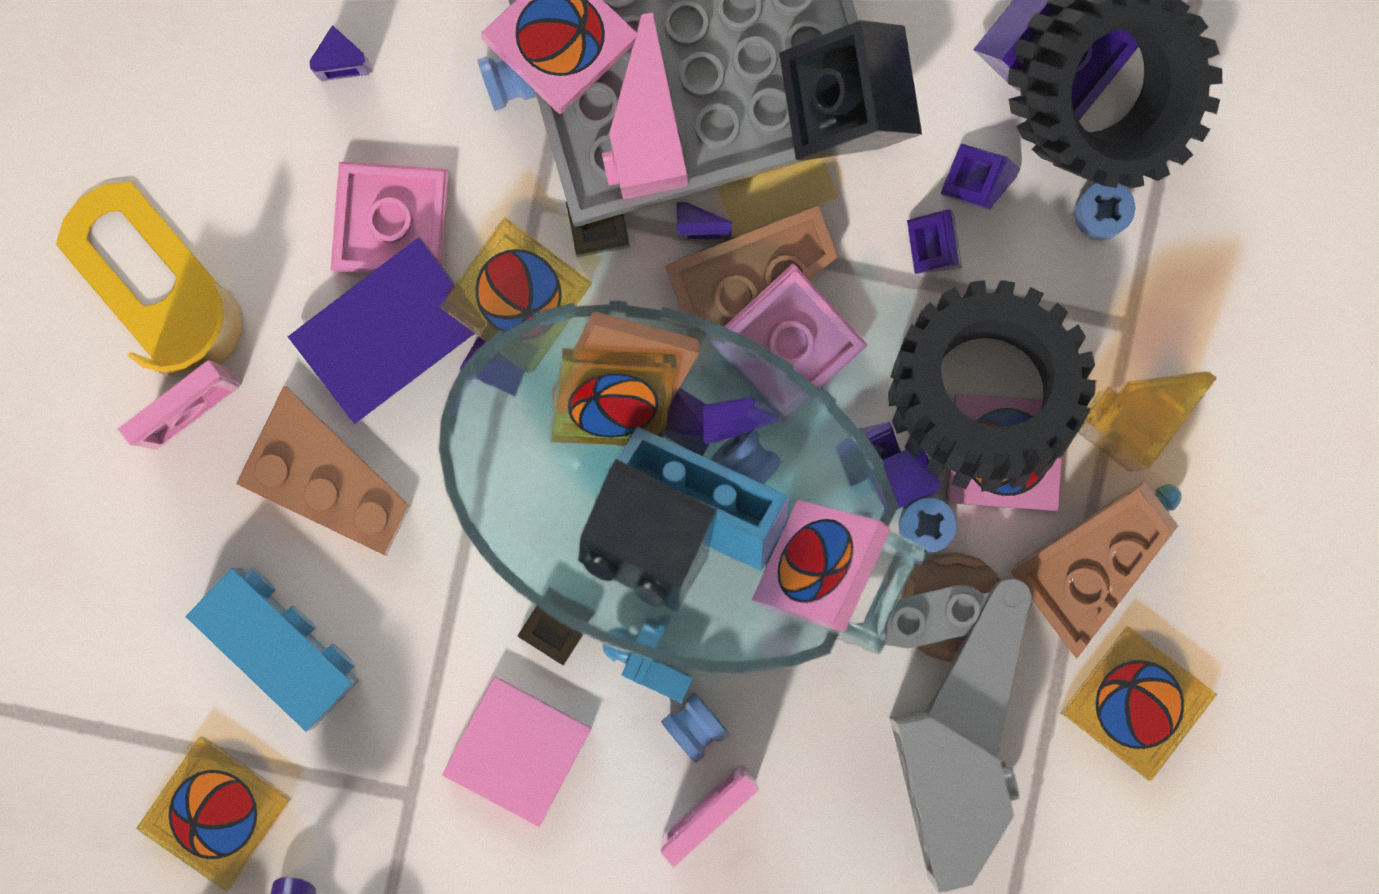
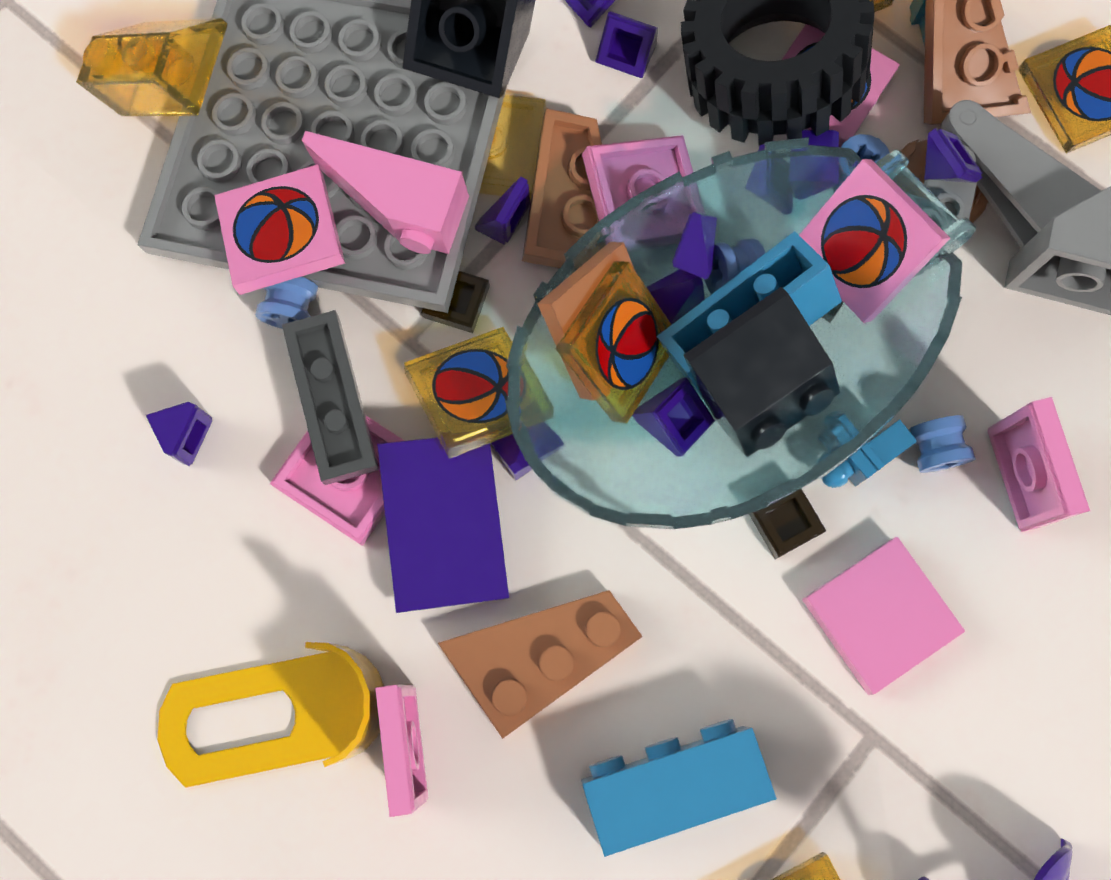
camera: 65 degrees left, 10 degrees down
(438, 171) = (330, 398): none -> dark grey plate
(578, 479) = (675, 417): none -> dark purple slope
(949, 601) = (949, 159): none -> dark purple slope

